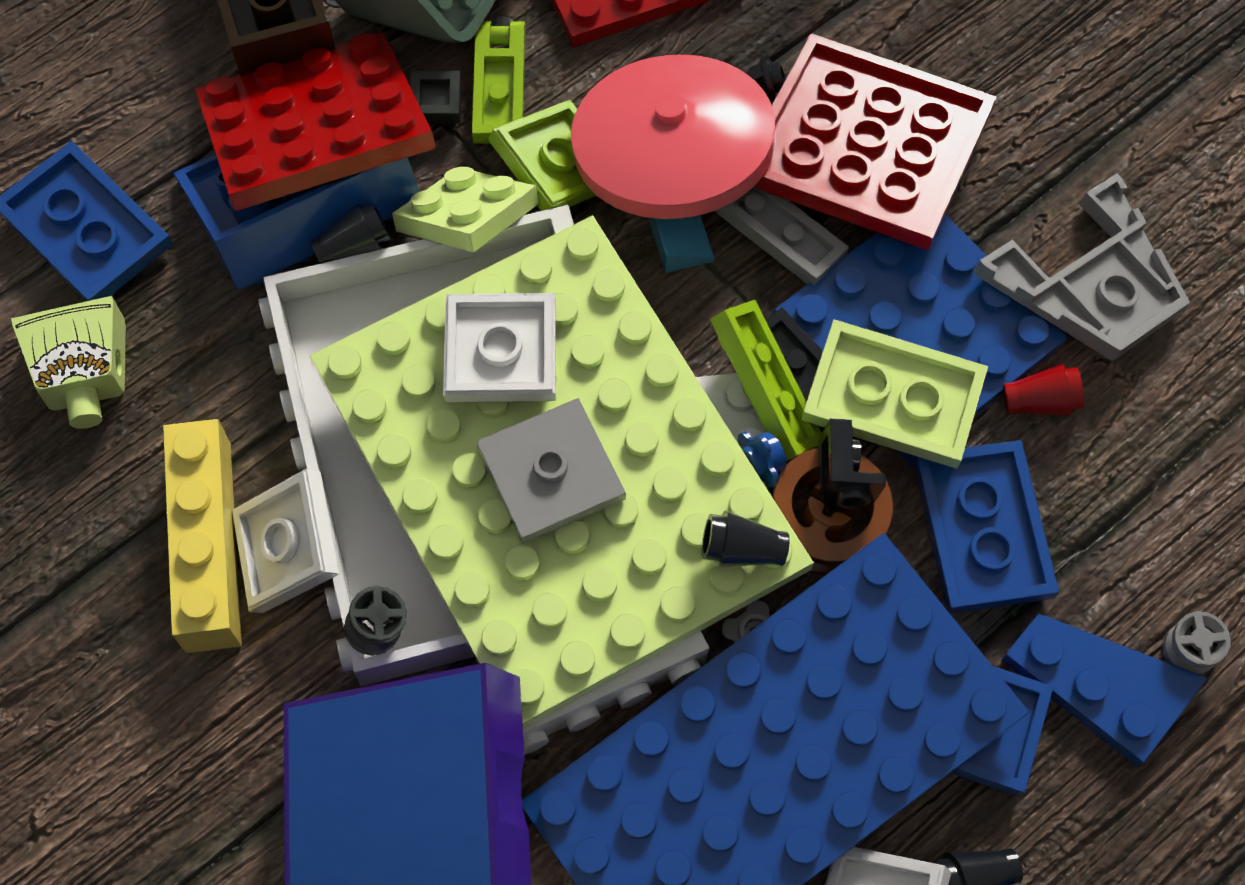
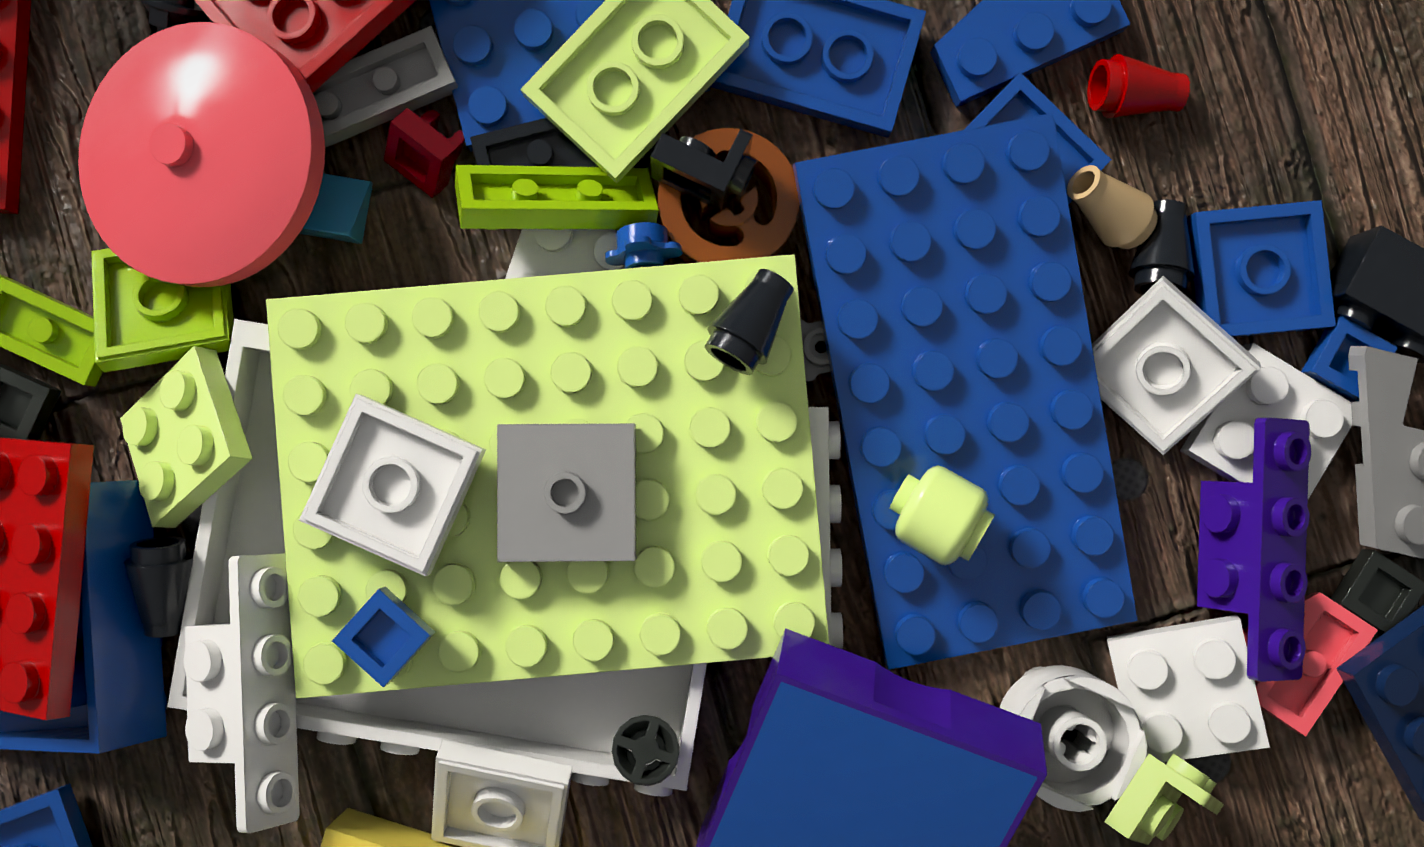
camera: 70 degrees left, 20 degrees up
(296, 320) = (245, 693): none -> white bracket
(385, 387) = (383, 636): none -> blue plate
(665, 766) = (941, 515): none -> yellowish green head
(754, 278) = (421, 151): none -> dark red tile
(986, 811) = (1114, 209): none -> tan cone
(1095, 791) = (1134, 87): none -> red cone

